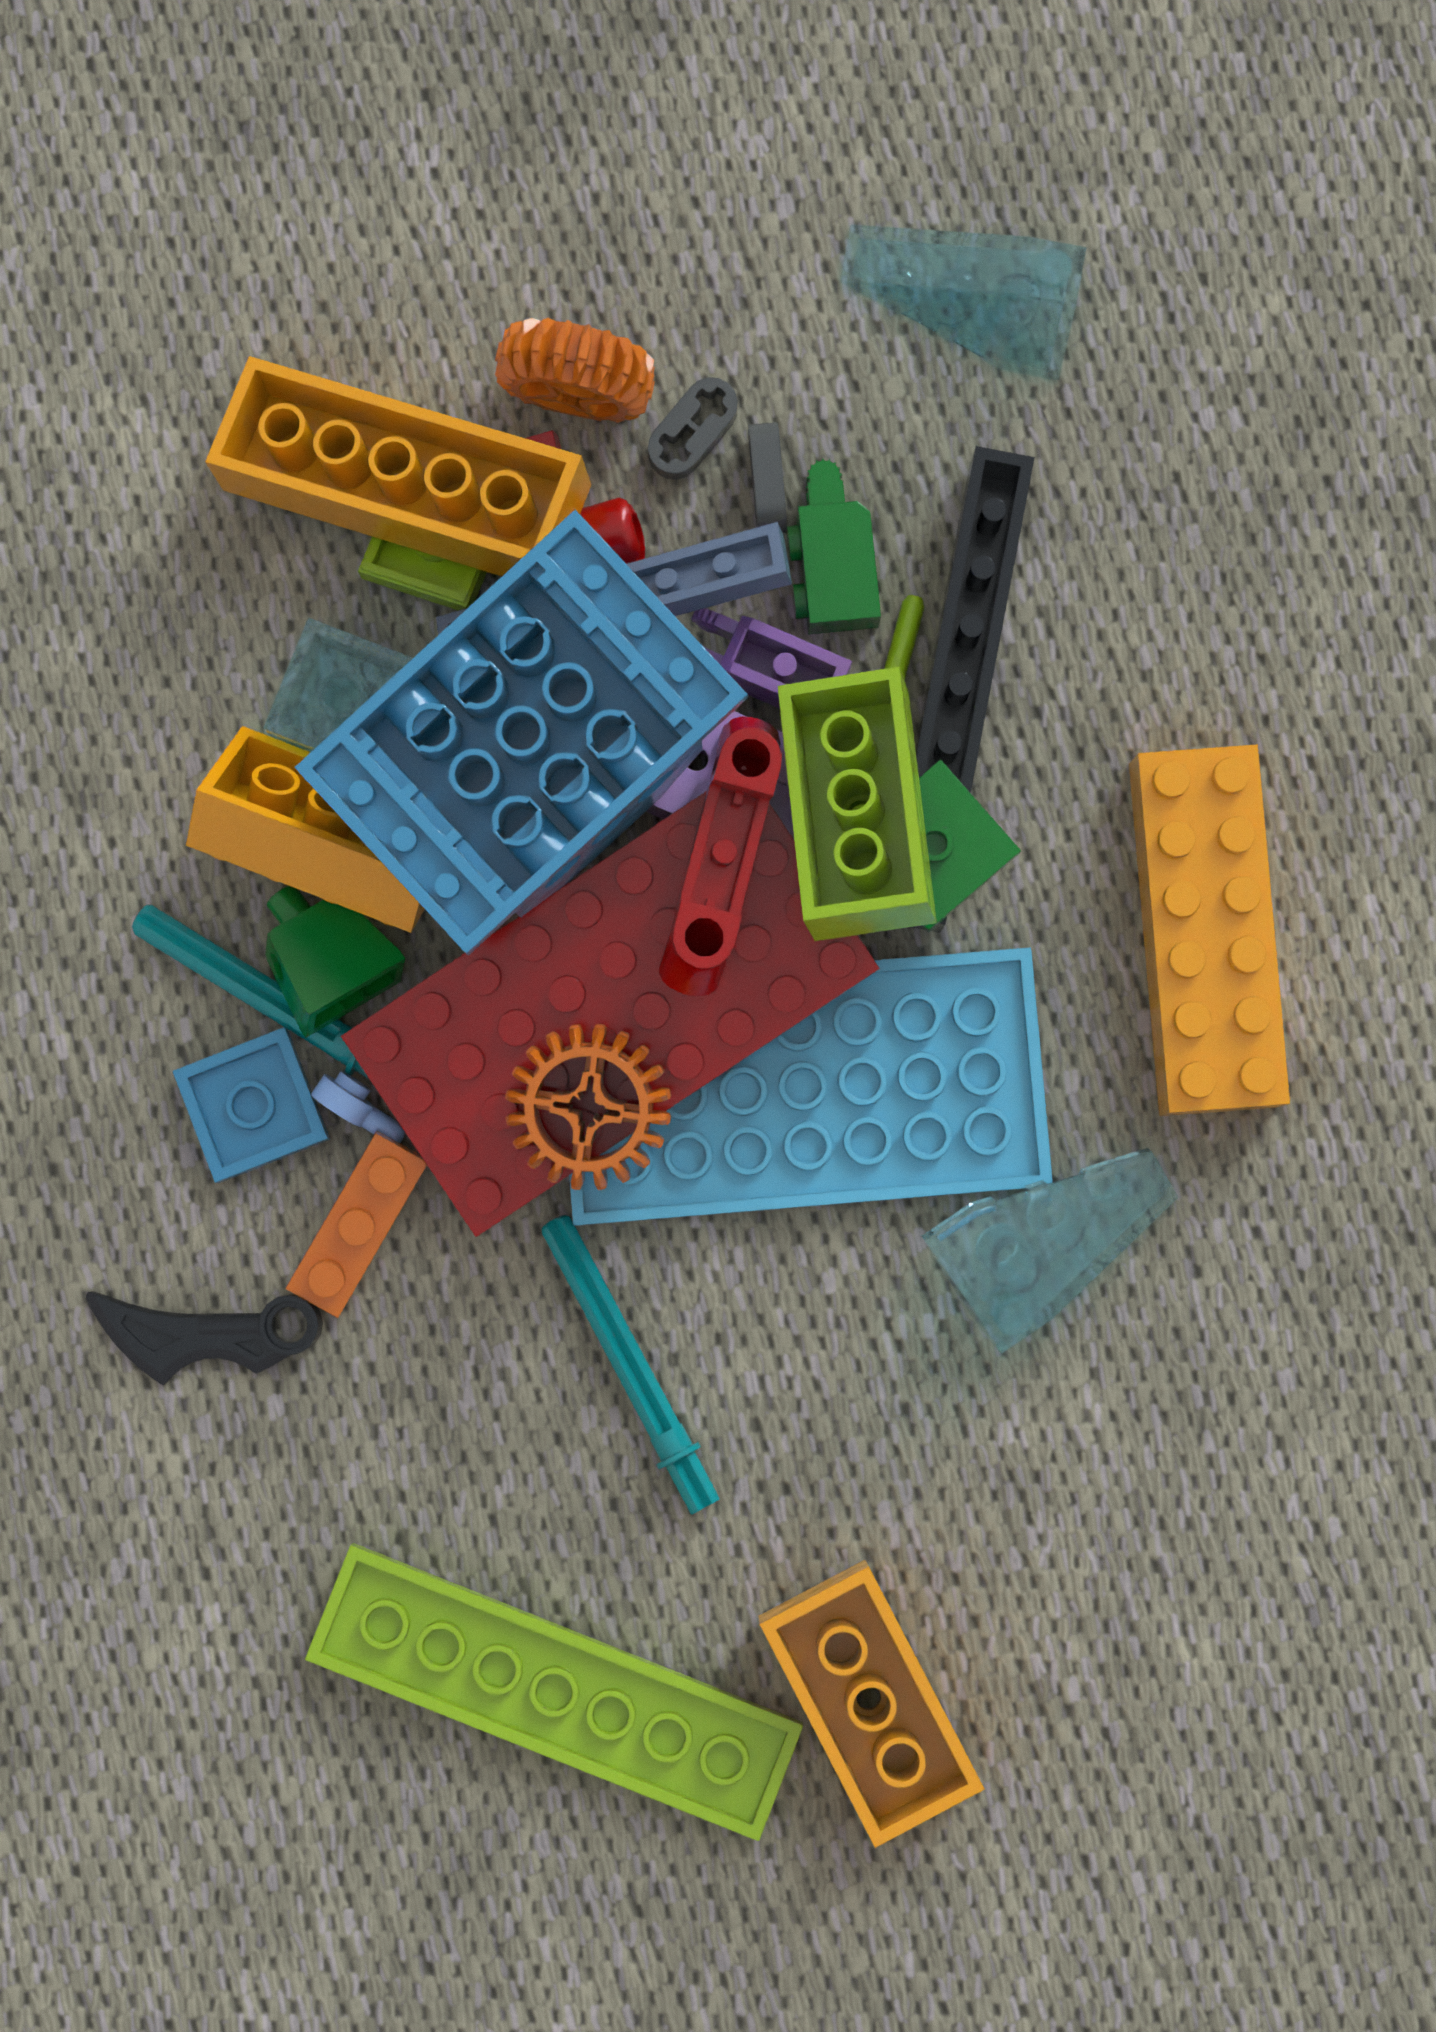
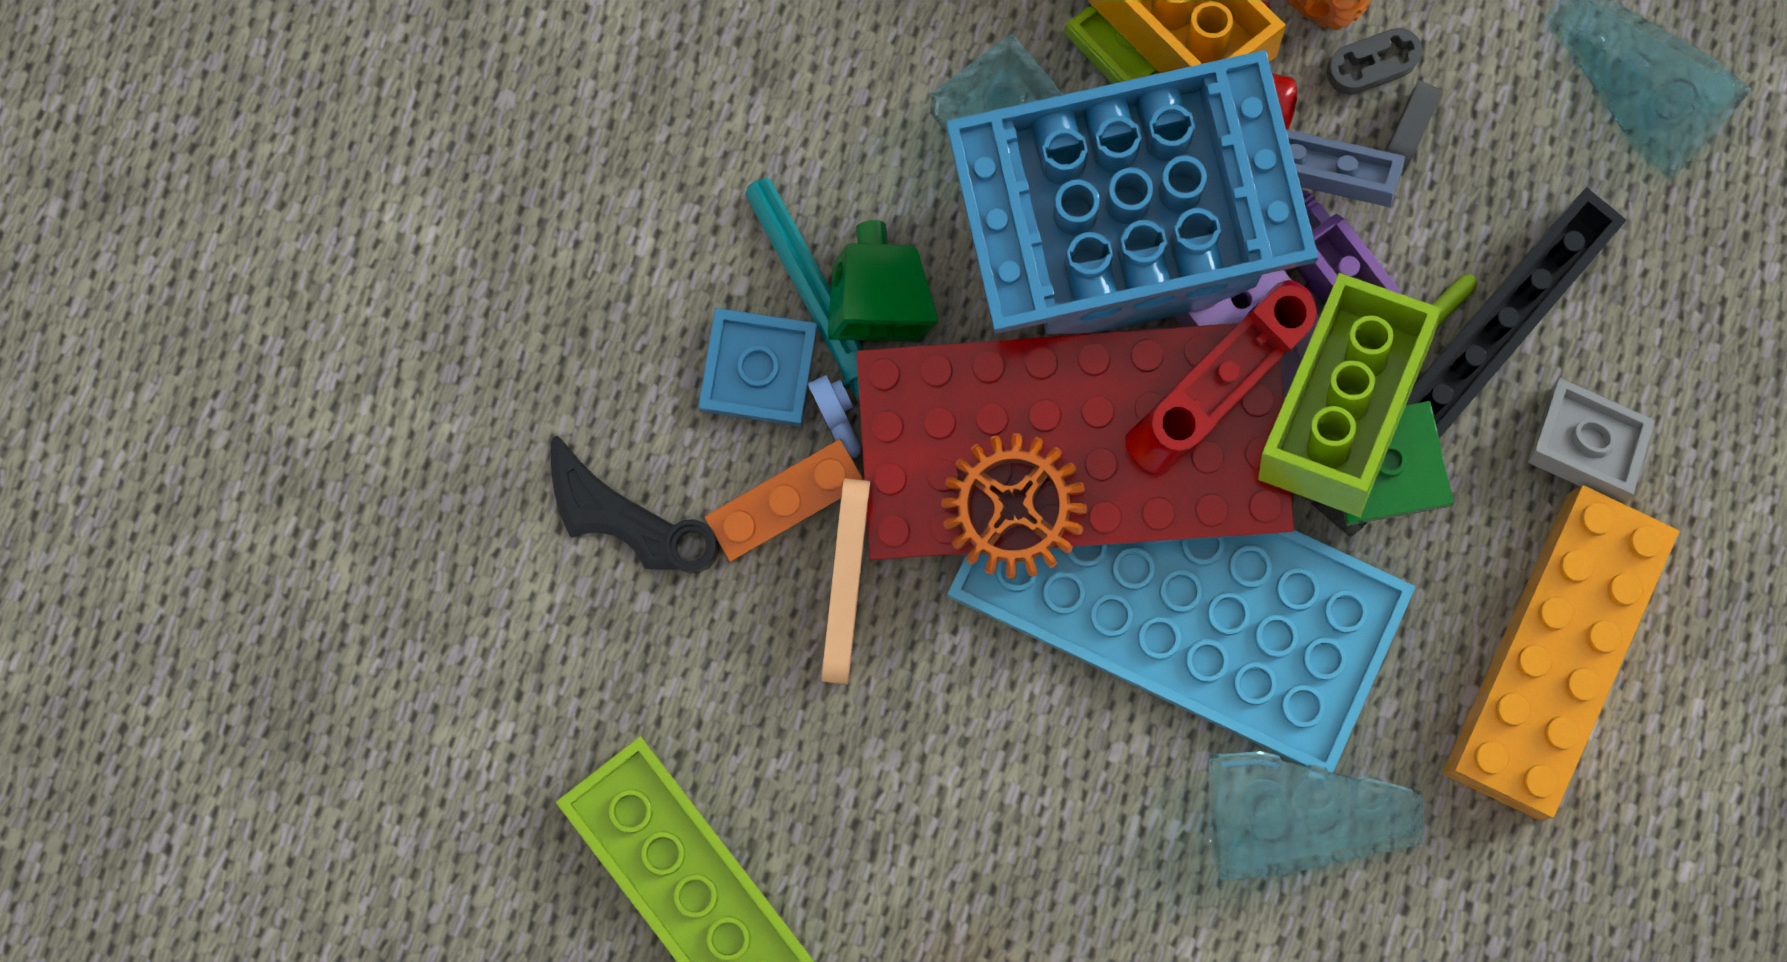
camera: 30 degrees right, 5 degrees down
(274, 823) = (907, 171): light orange brick -> none
(464, 1272) = (845, 581): none -> light nougat beam
(663, 1427) = (929, 721): teal axle -> none
(835, 557) = (1429, 214): green hinge -> none
(1123, 700) = (1591, 441): none -> light grey plate

